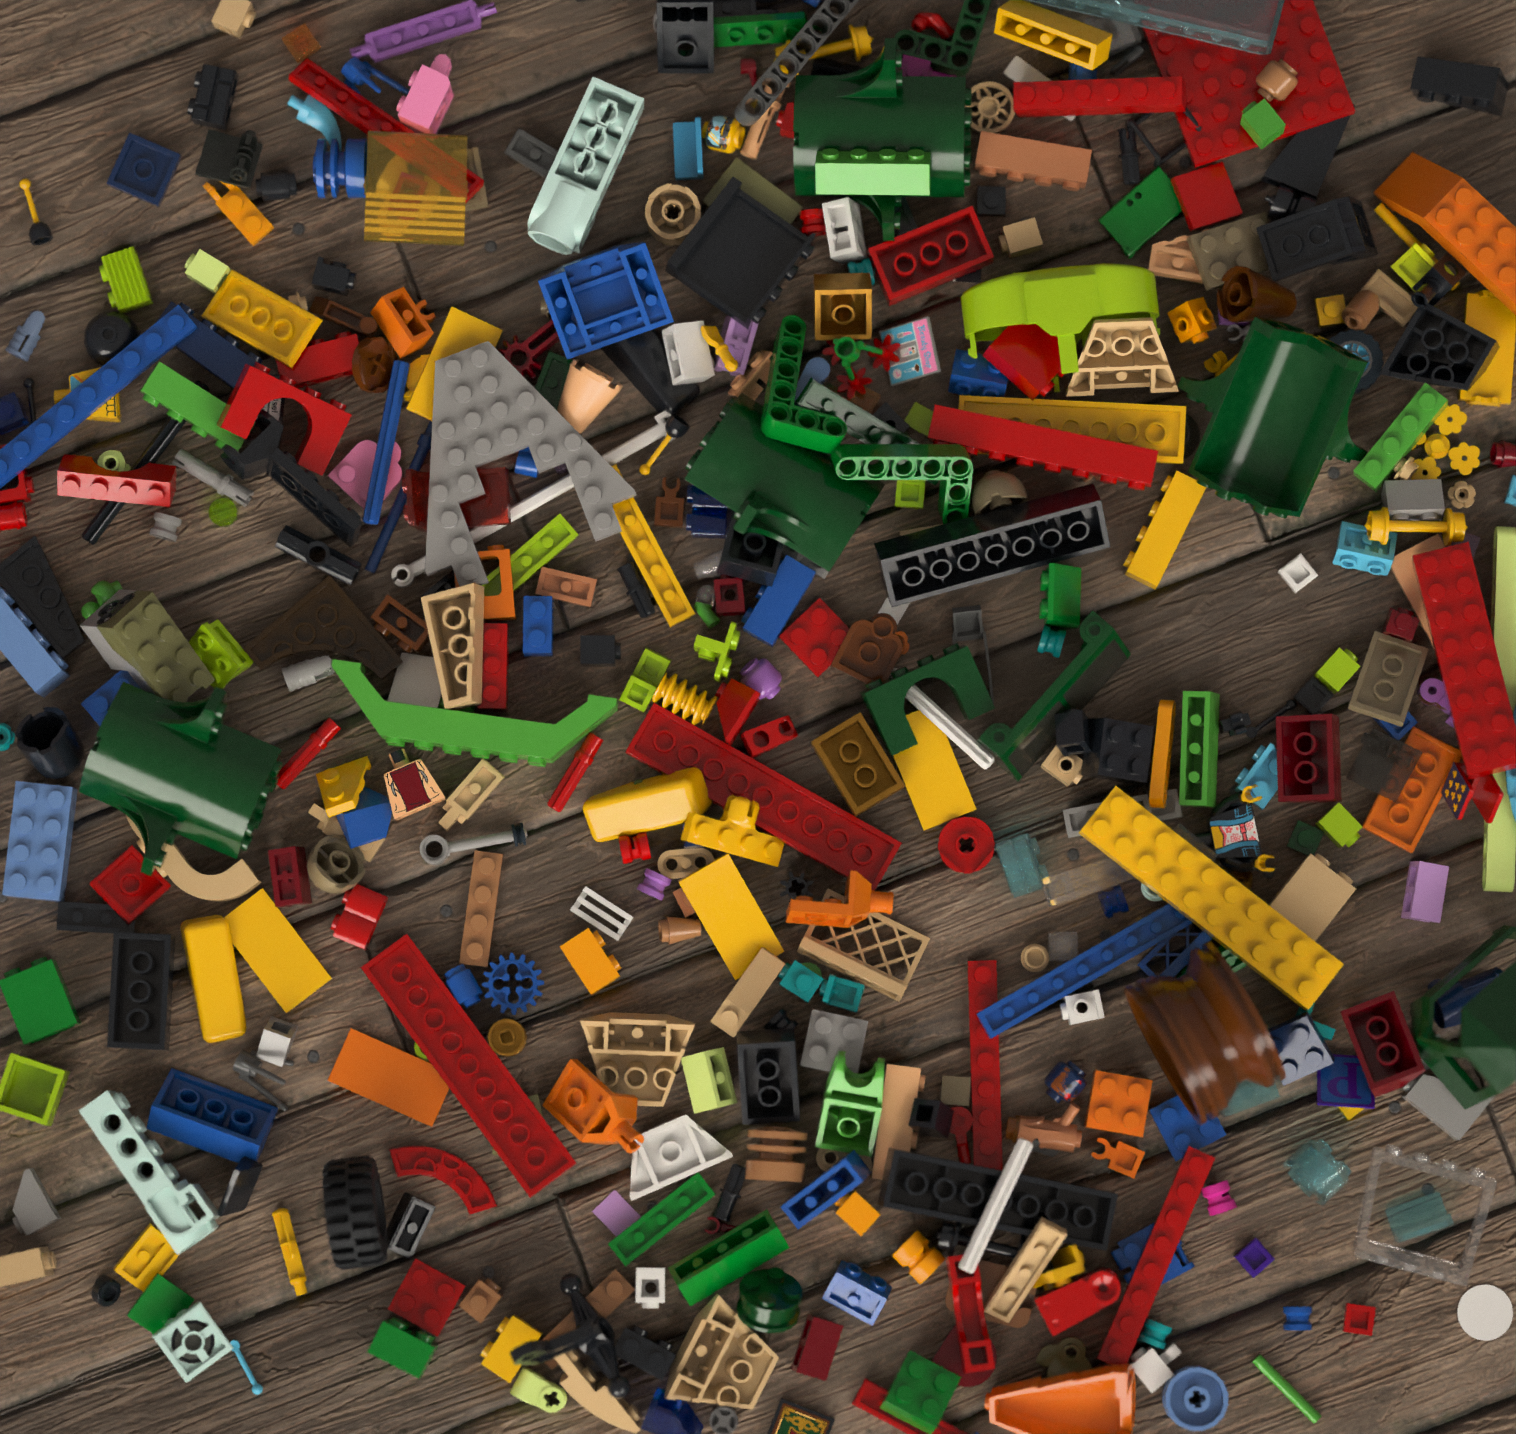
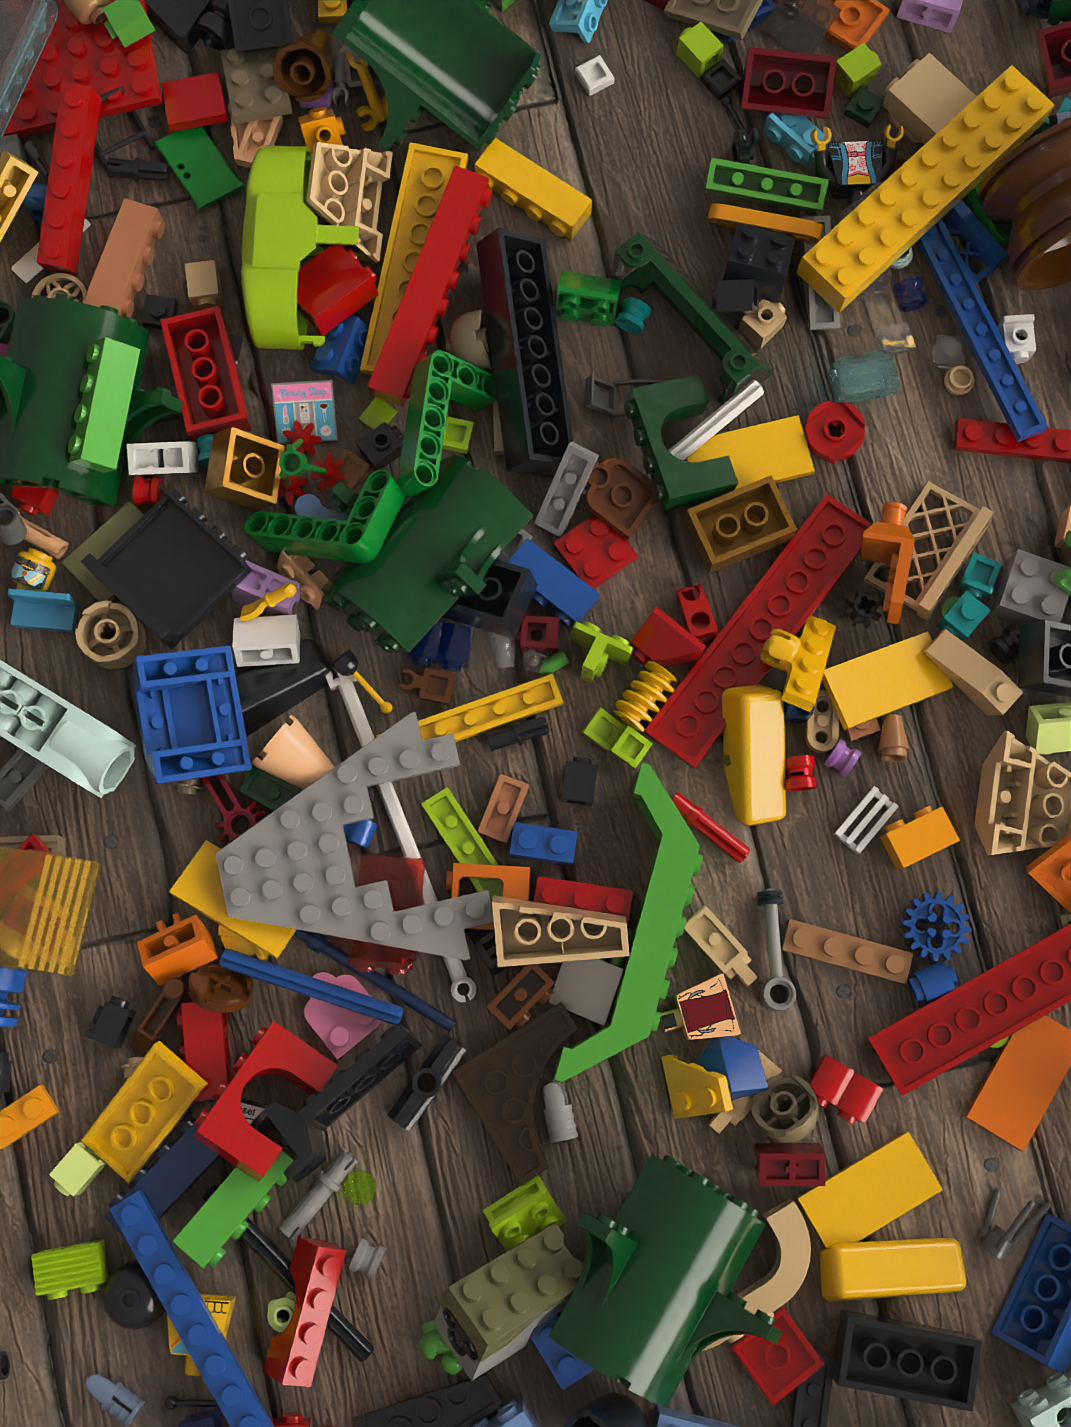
camera: 85 degrees left, 5 degrees down
(276, 1041) = (974, 1204): light grey brick -> none
(316, 742) = (639, 1113): red axle -> none
(507, 1037) = (996, 940): pearl gold wheel -> none
(761, 677) = (631, 613): medium lavender head -> none
(859, 421) = (383, 455): tile -> none
(867, 600) = (566, 489): none -> light grey hinge

